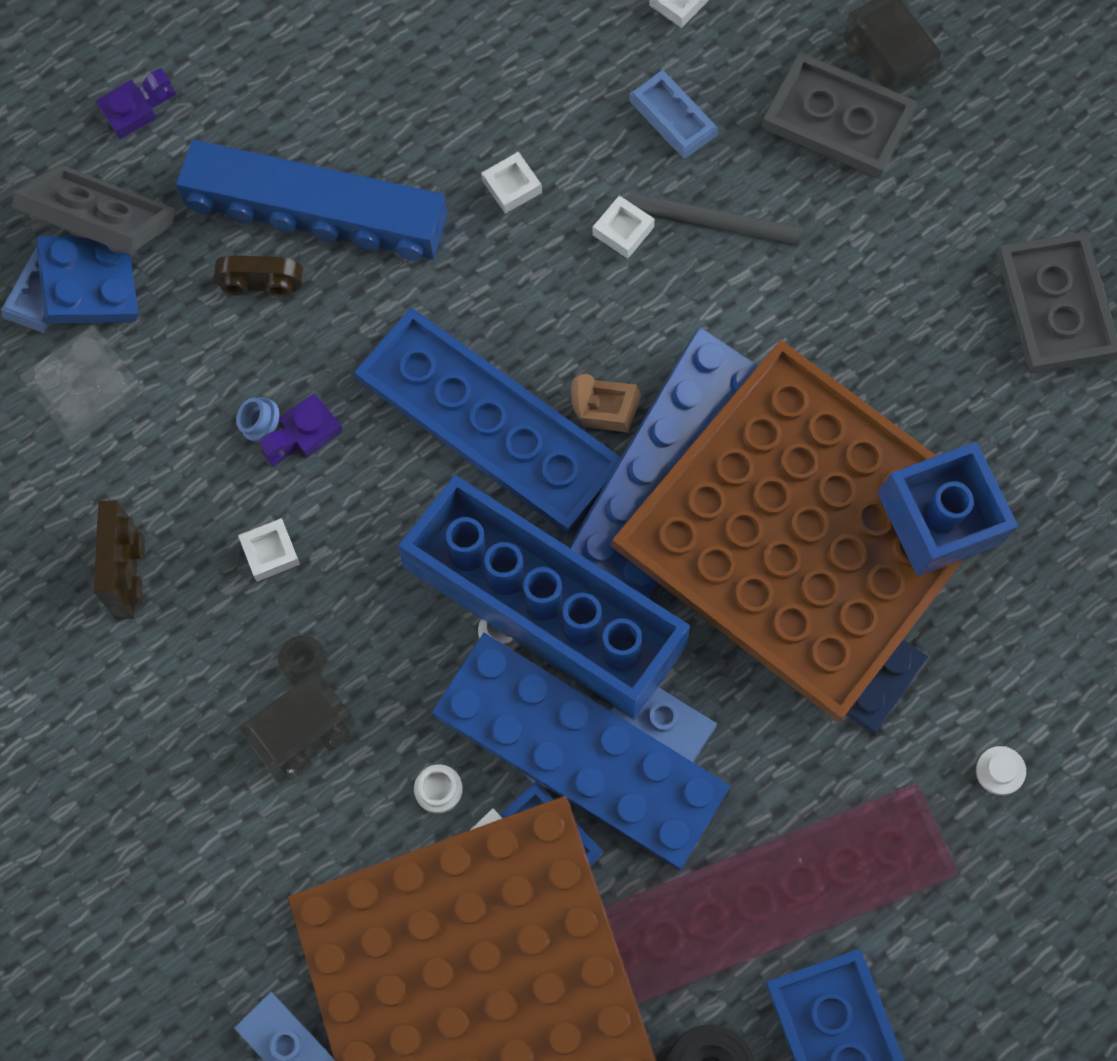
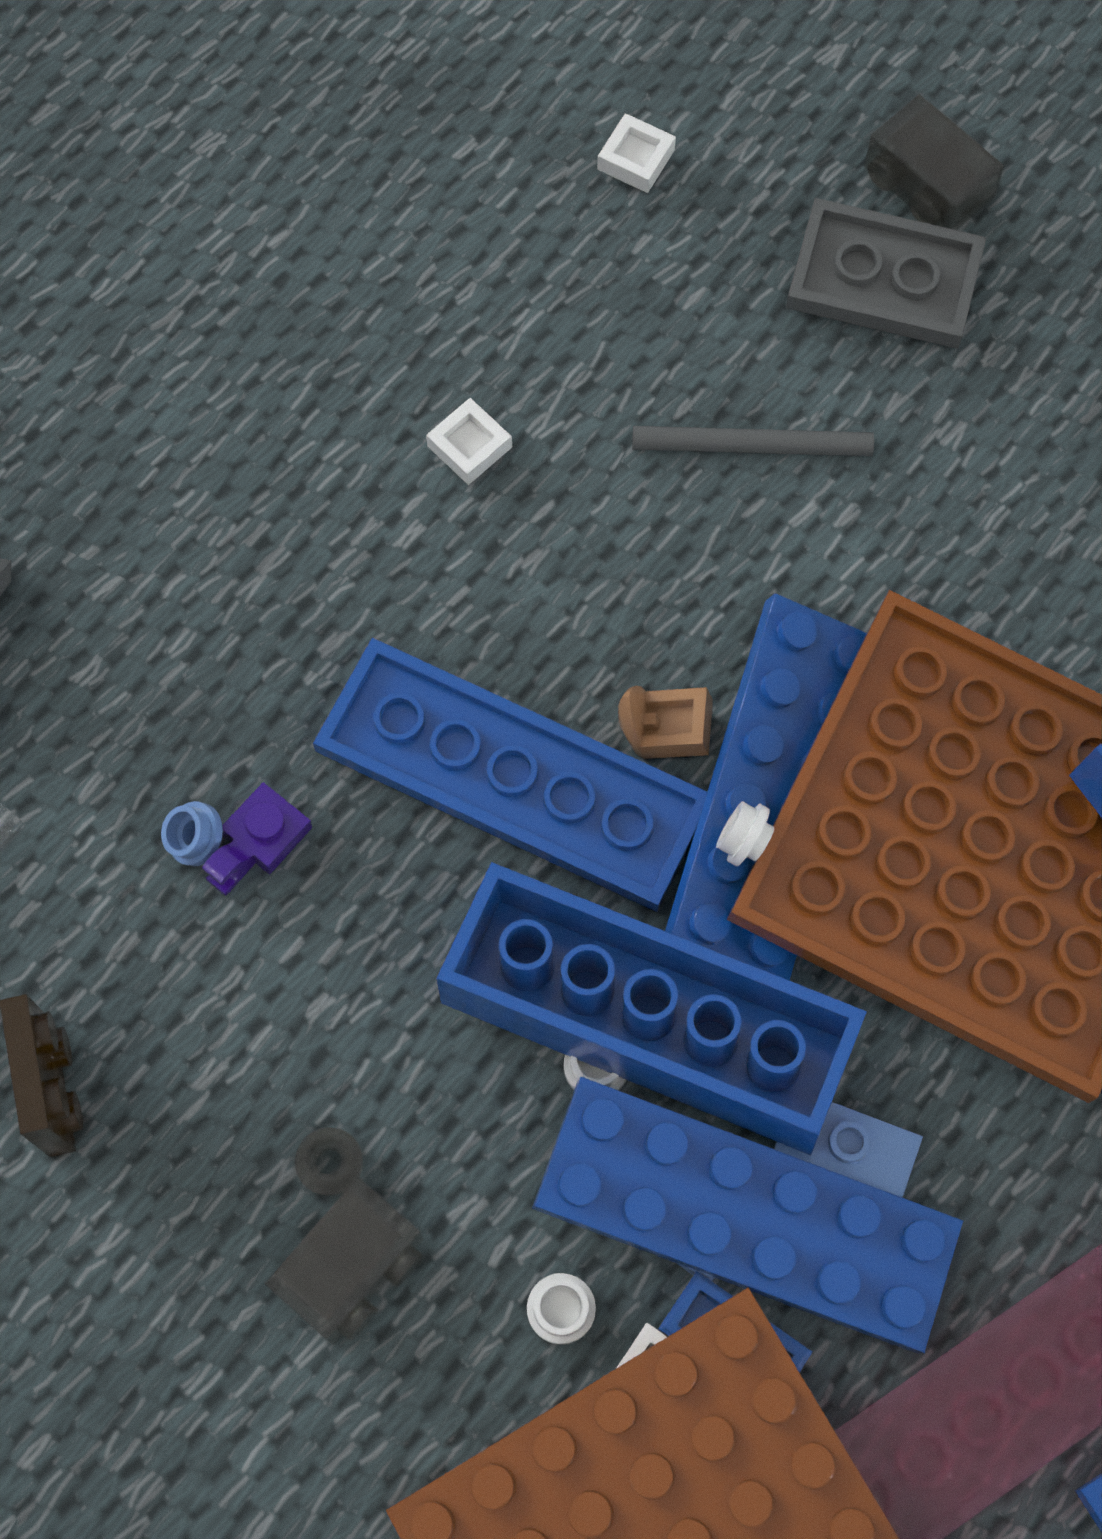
camera: 15 degrees left, 0 degrees up
(258, 273) = (166, 627): dark brown plate -> none
(269, 550) = (248, 1015): white plate -> none
(312, 200) = (199, 514): blue brick -> none
(623, 227) = (634, 474): white plate -> none
(635, 488) = (745, 833): none -> white plate
(673, 114) = (665, 310): medium blue plate -> none

